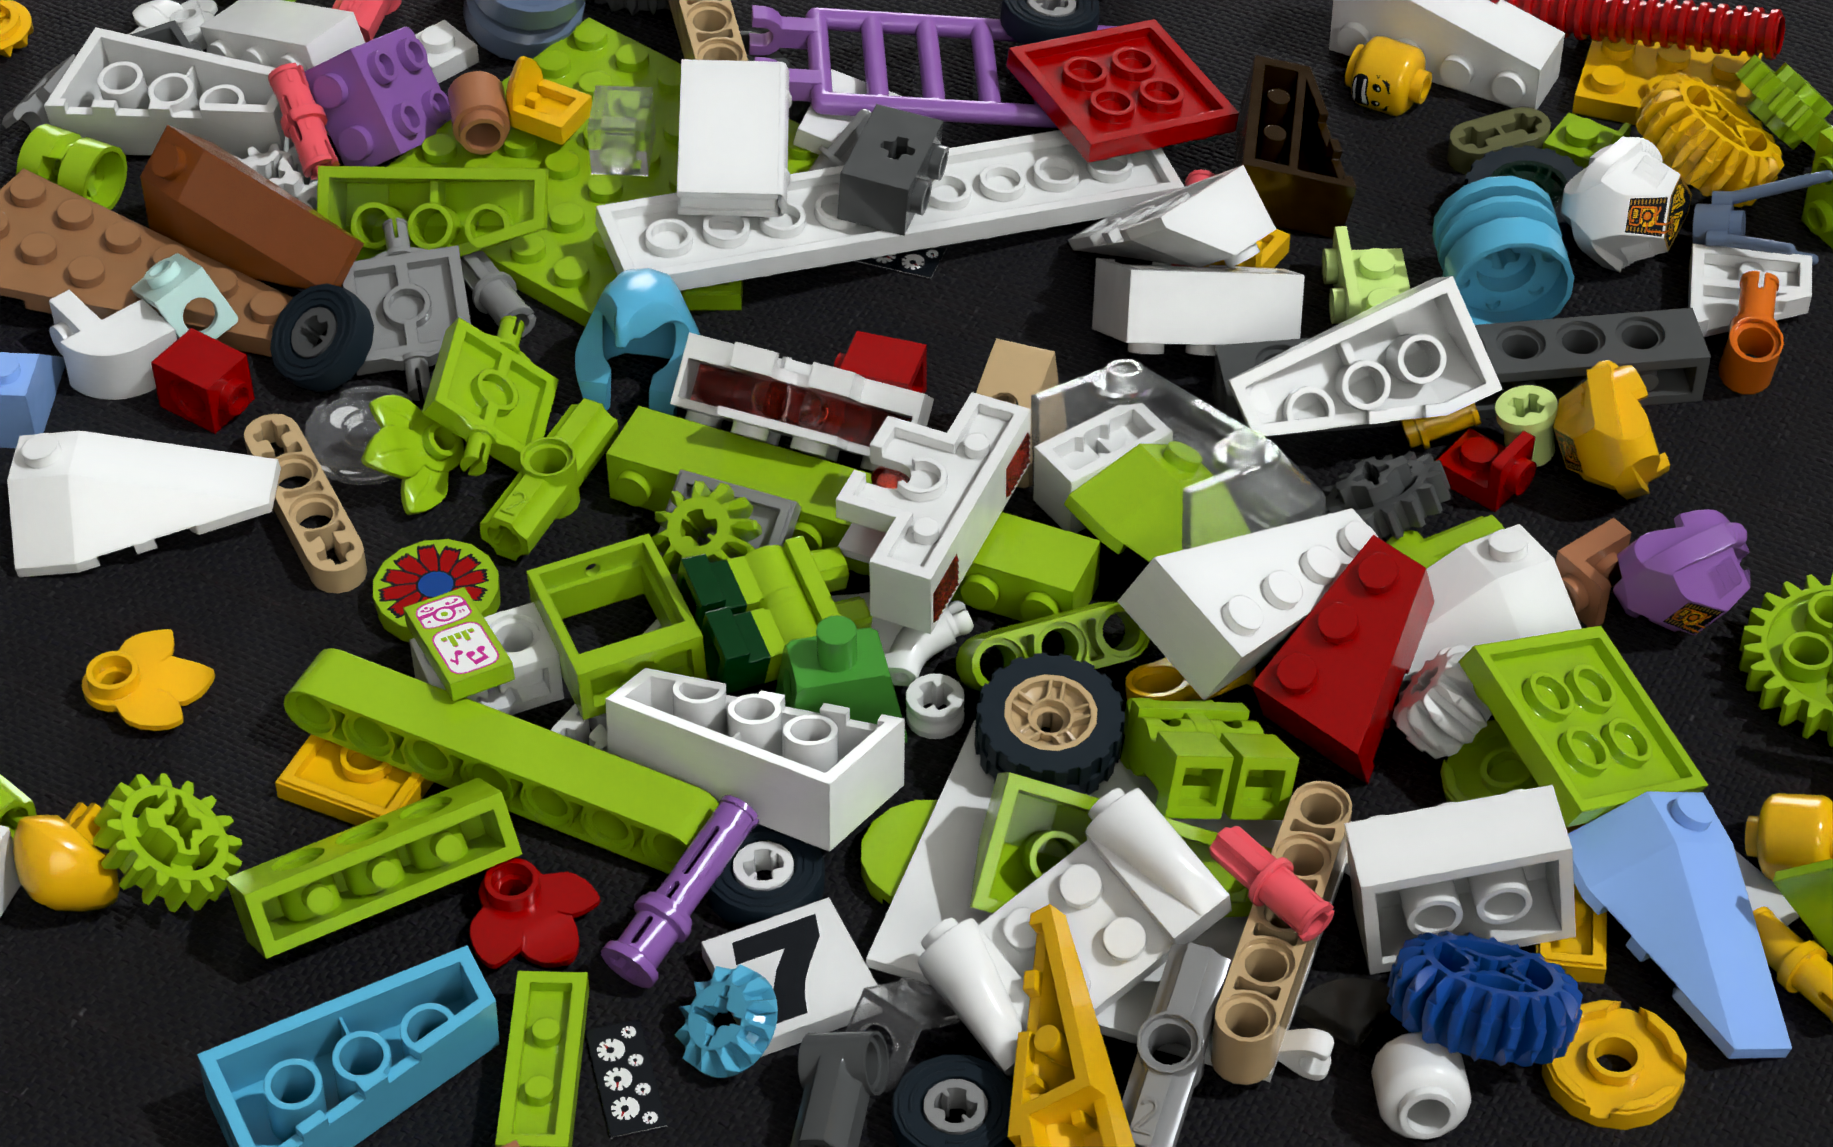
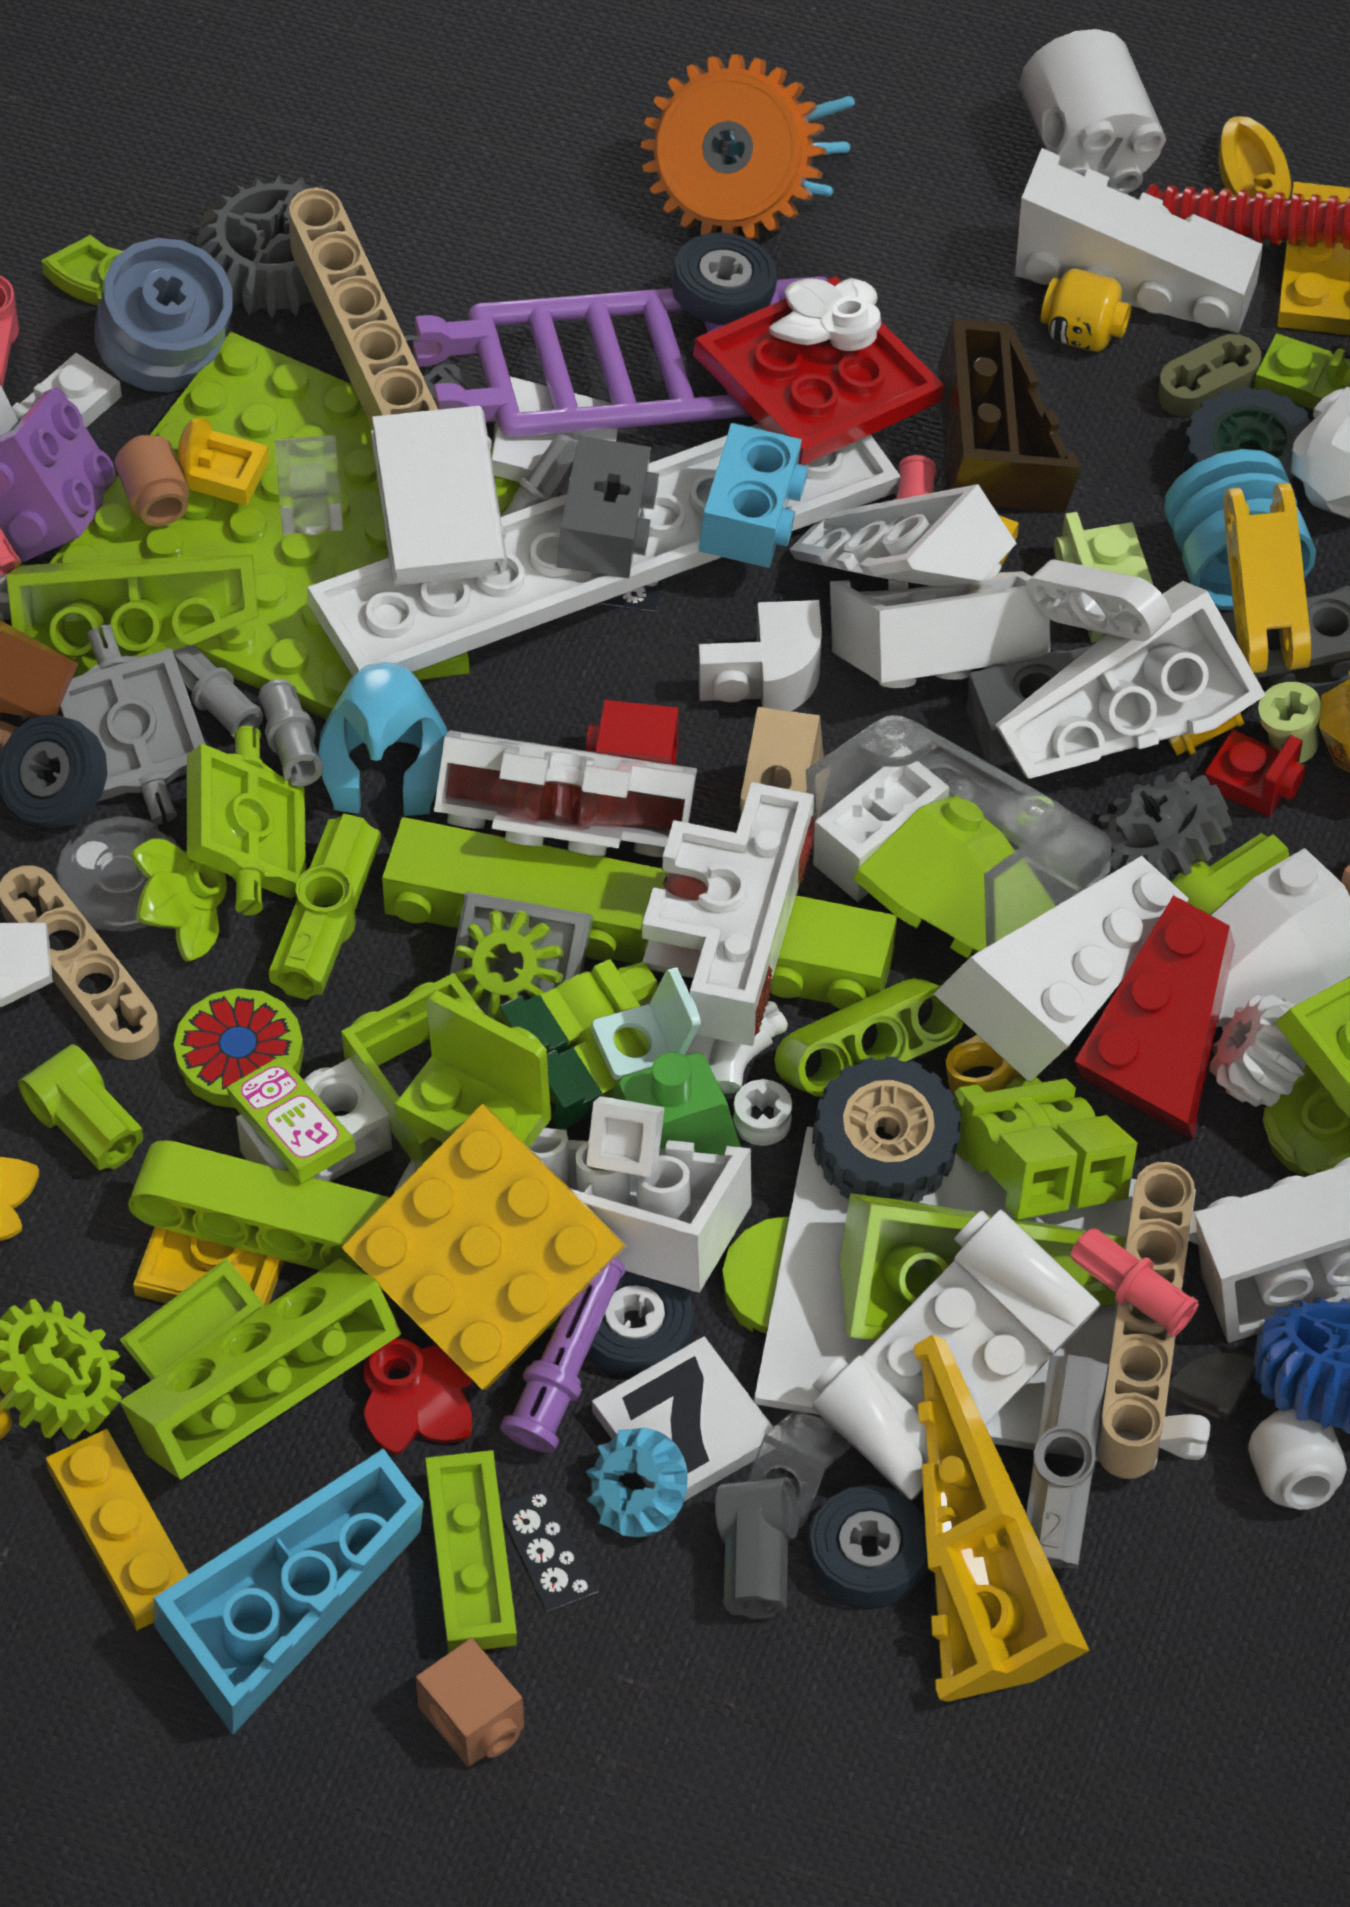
camera: 10 degrees left, 10 degrees up
(194, 989) = (117, 1523): none -> yellow plate
(266, 616) = (74, 1097): none -> lime piece
(320, 814) = (192, 1320): none -> lime tile
(555, 332) = (290, 732): none -> light grey pin
(616, 775) = (484, 1246): none -> yellow plate
(649, 624) = (475, 1065): none -> lime bracket
(777, 686) = (625, 1136): none -> white tile
(841, 596) = (667, 1022): none -> light aqua bracket
(1034, 177) = (751, 496): none -> medium azure brick
(1041, 317) = (776, 668): none -> white brick
(1130, 36) = (830, 312): none -> white plate
(1346, 278) = (1098, 600): none -> white beam
(1518, 281) = (1267, 578): none -> yellow piece

